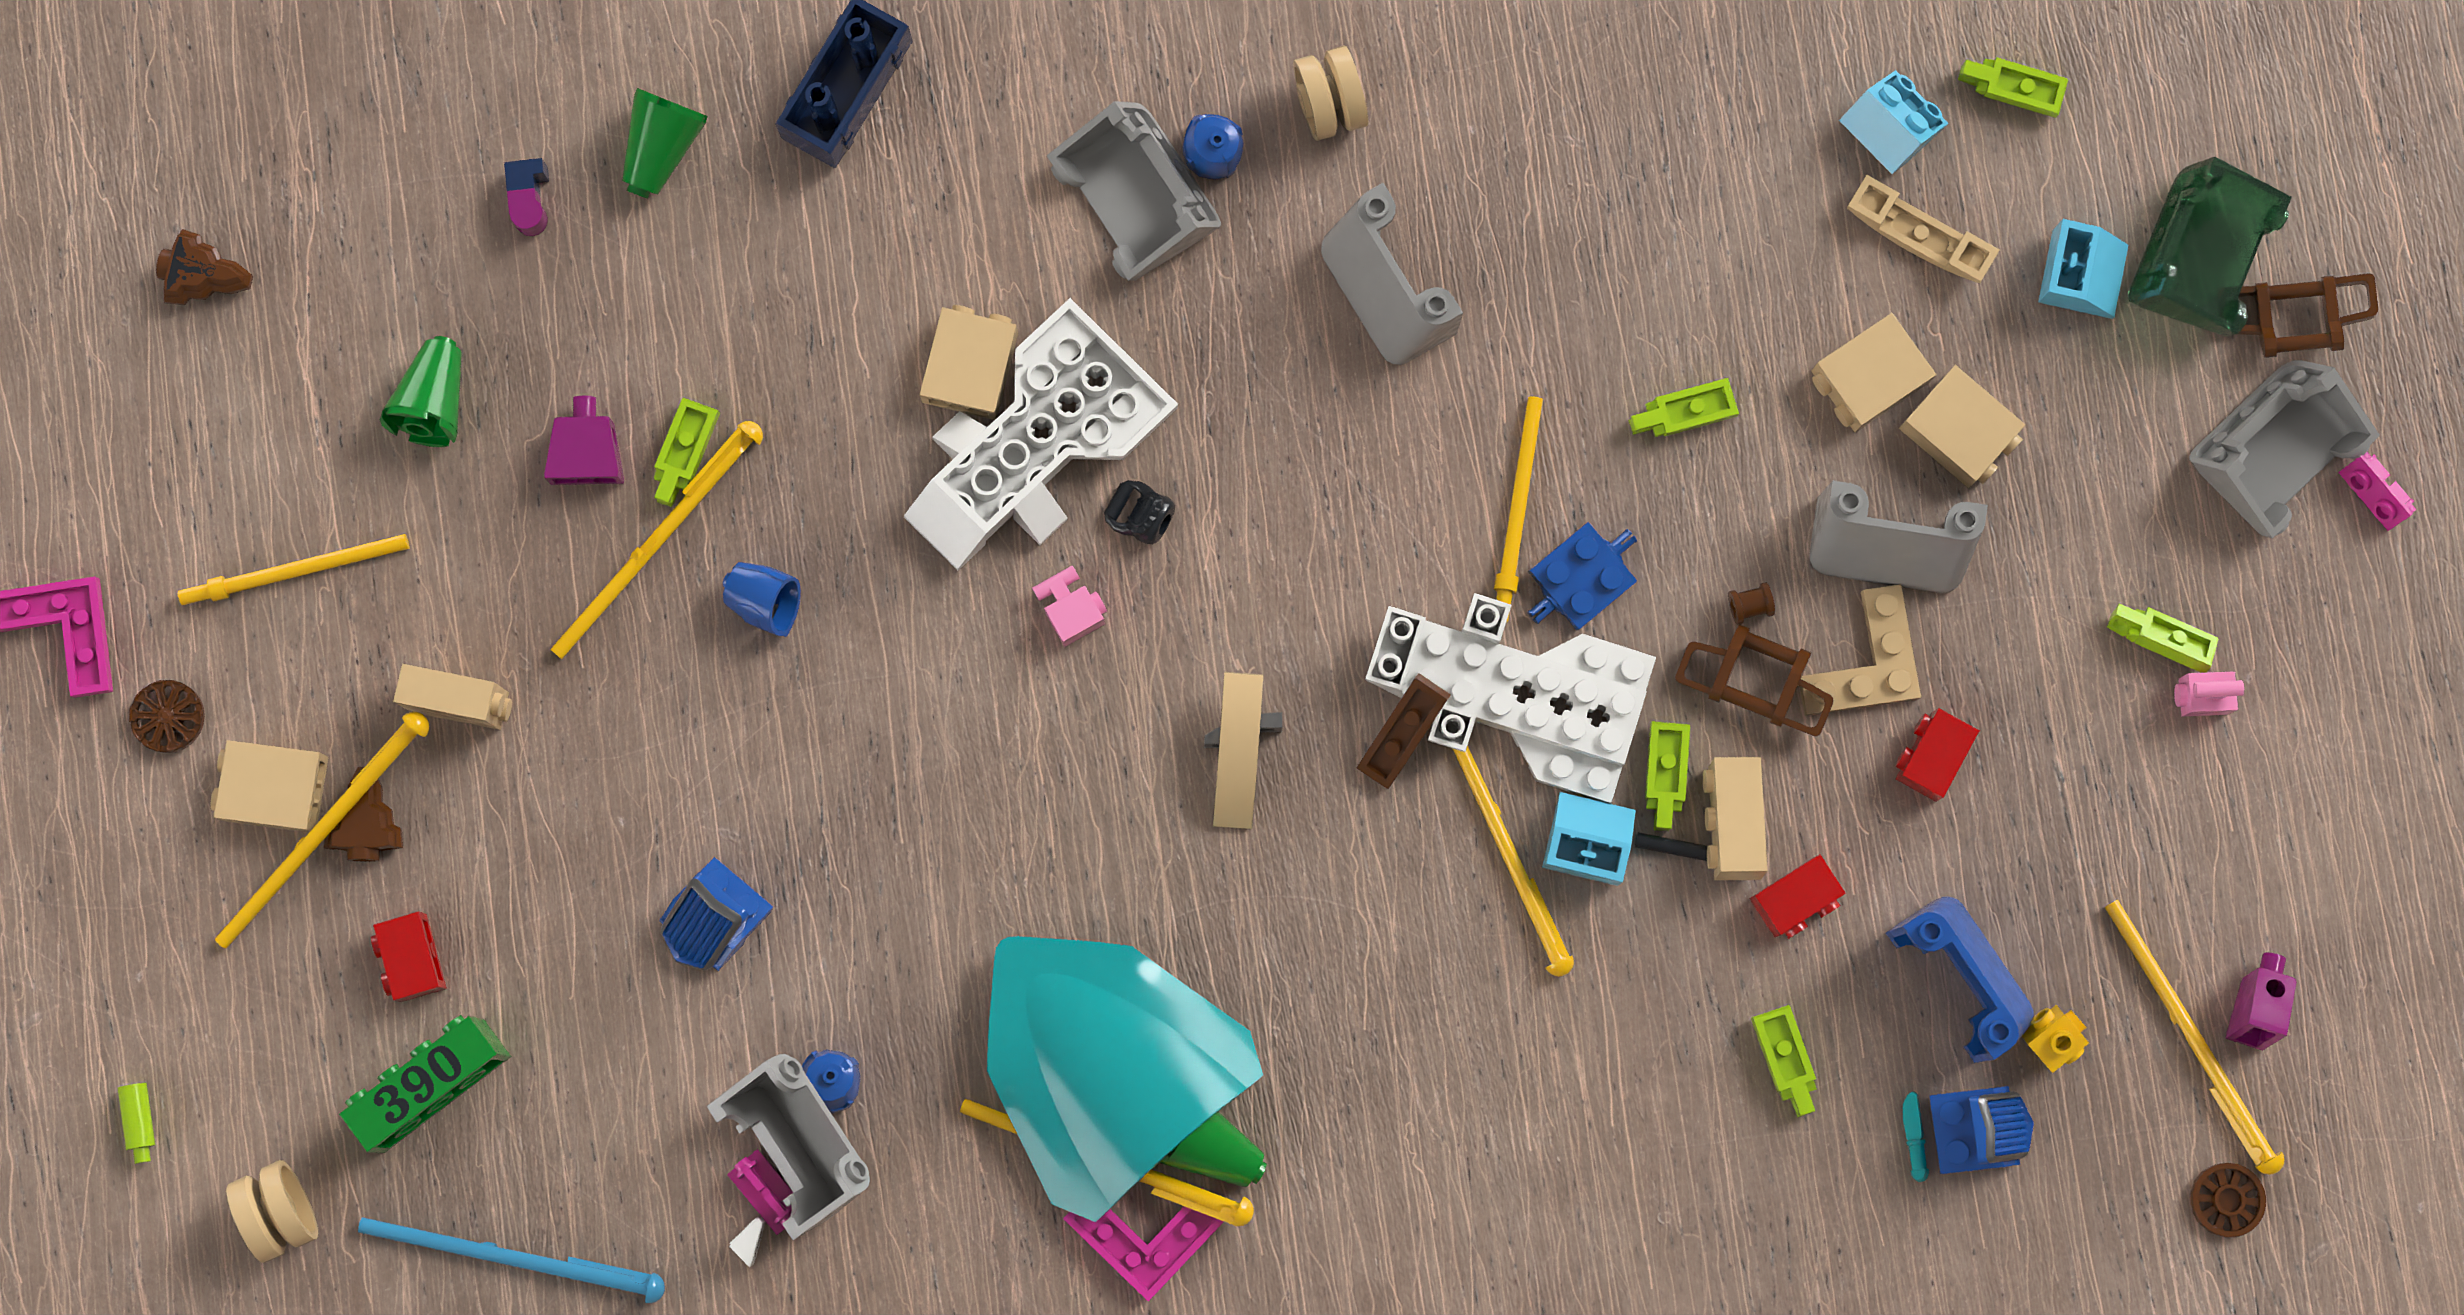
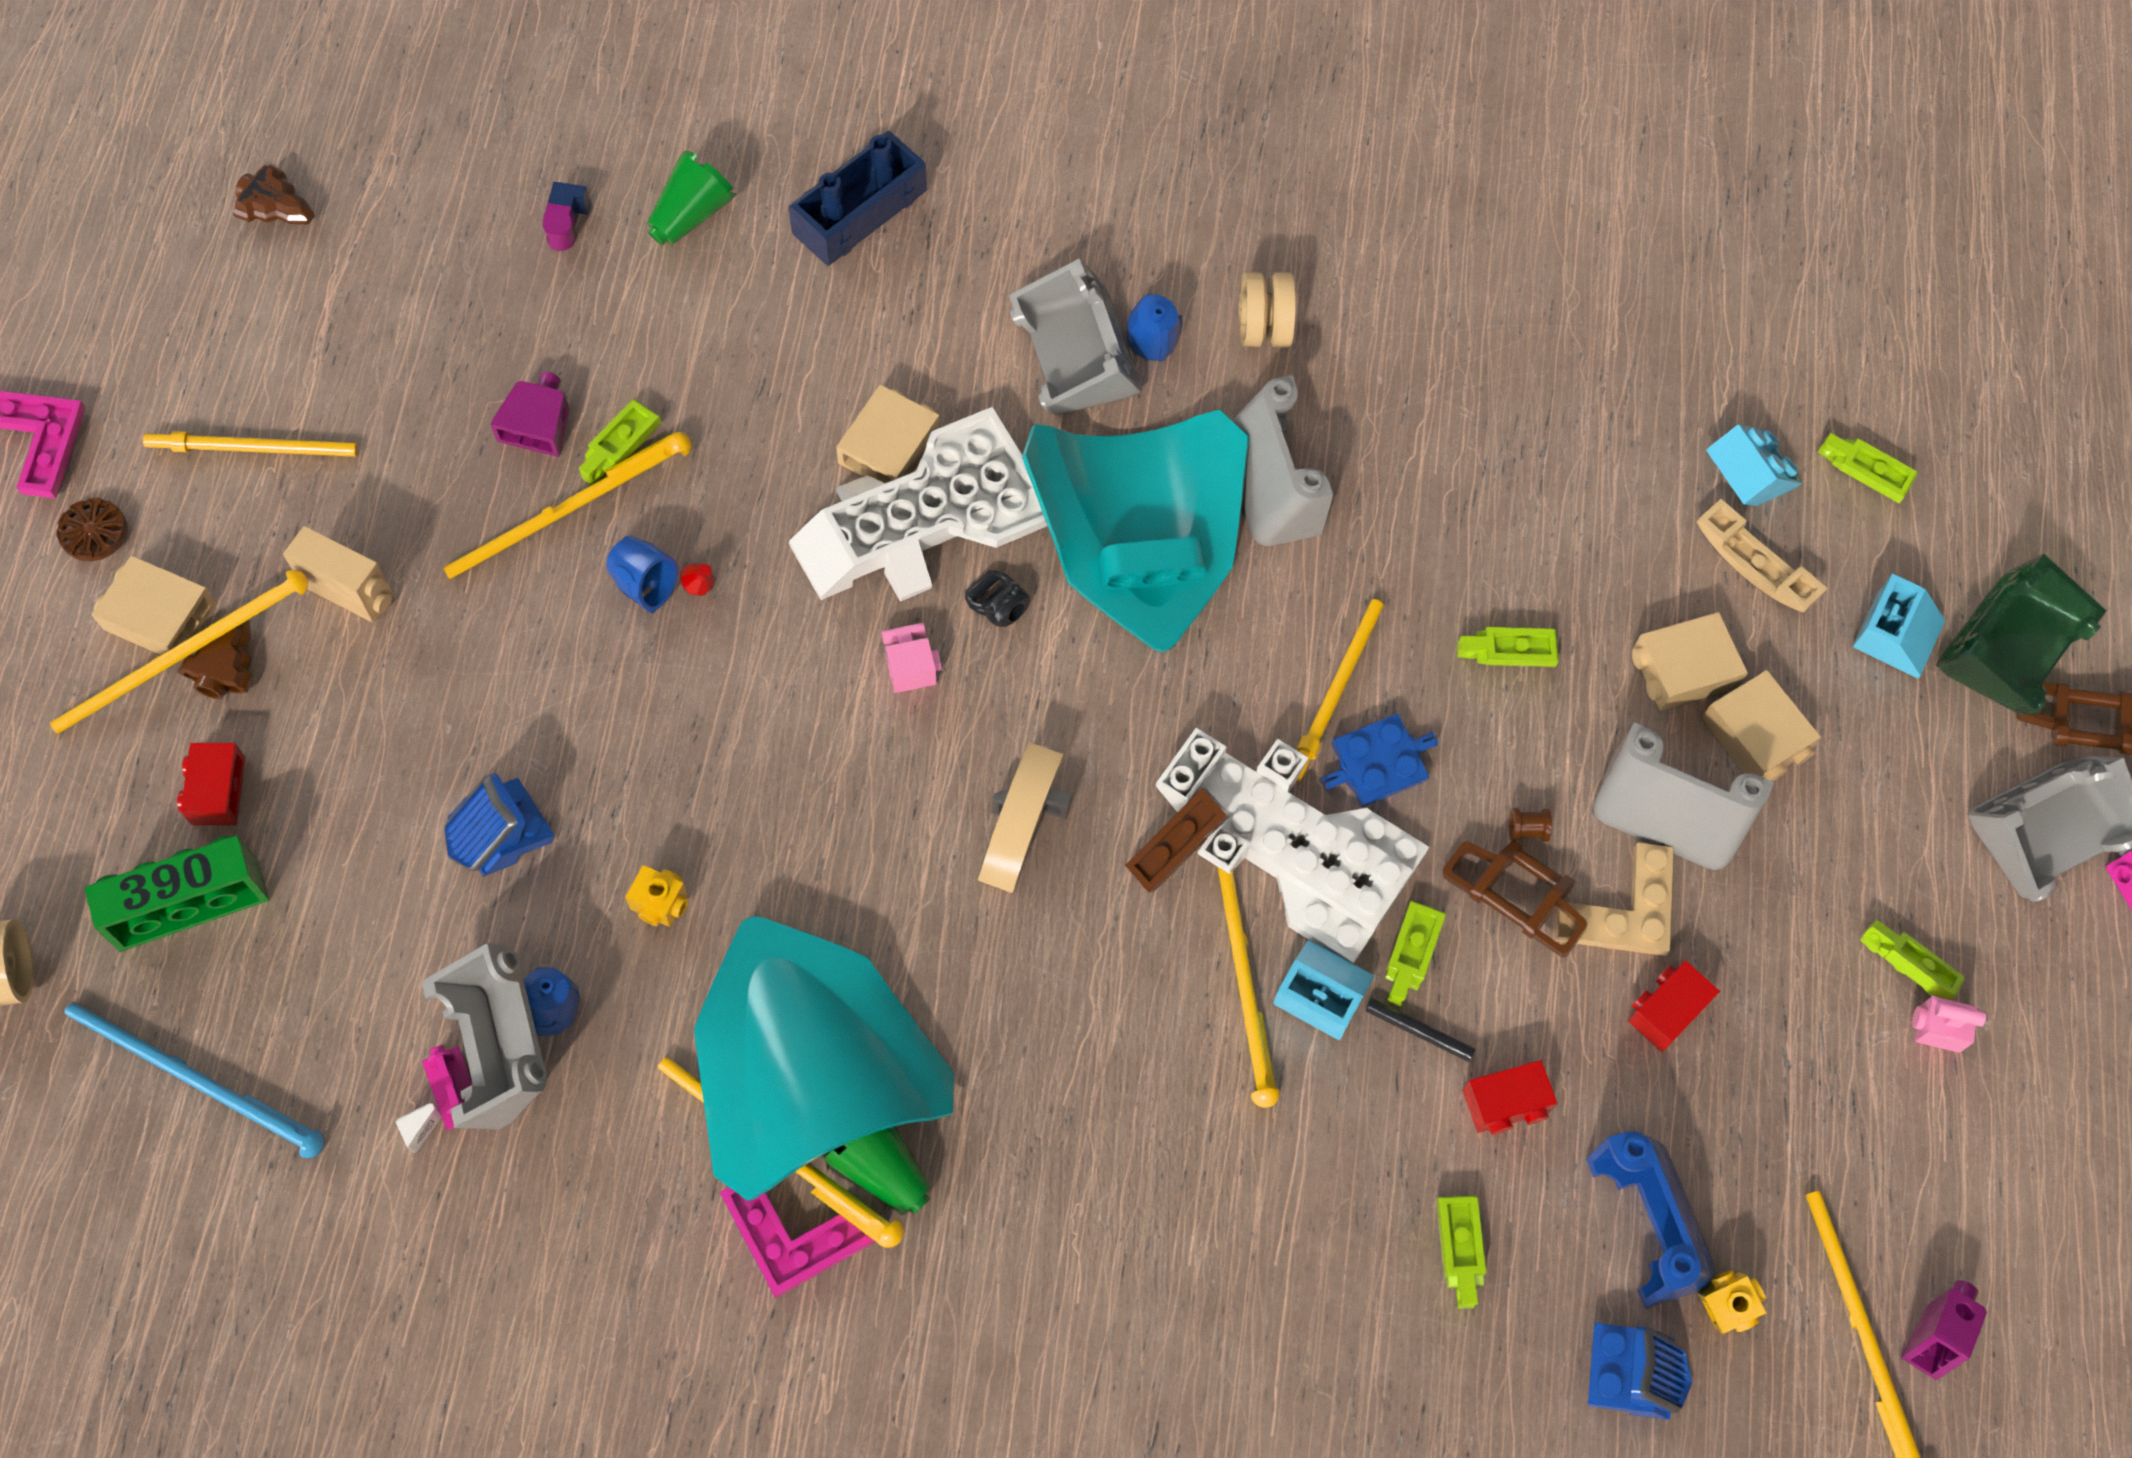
camera: 15 degrees right, 15 degrees down
(428, 396) = (417, 339): green cone -> none
(820, 582) = (697, 579): none -> red rock
(888, 938) = (657, 896): none -> yellow brick
(1265, 374) = (1143, 517): none -> teal windscreen
(1735, 818) = (1468, 1008): tan brick -> none
(1914, 1134) = (1570, 1359): teal piece -> none

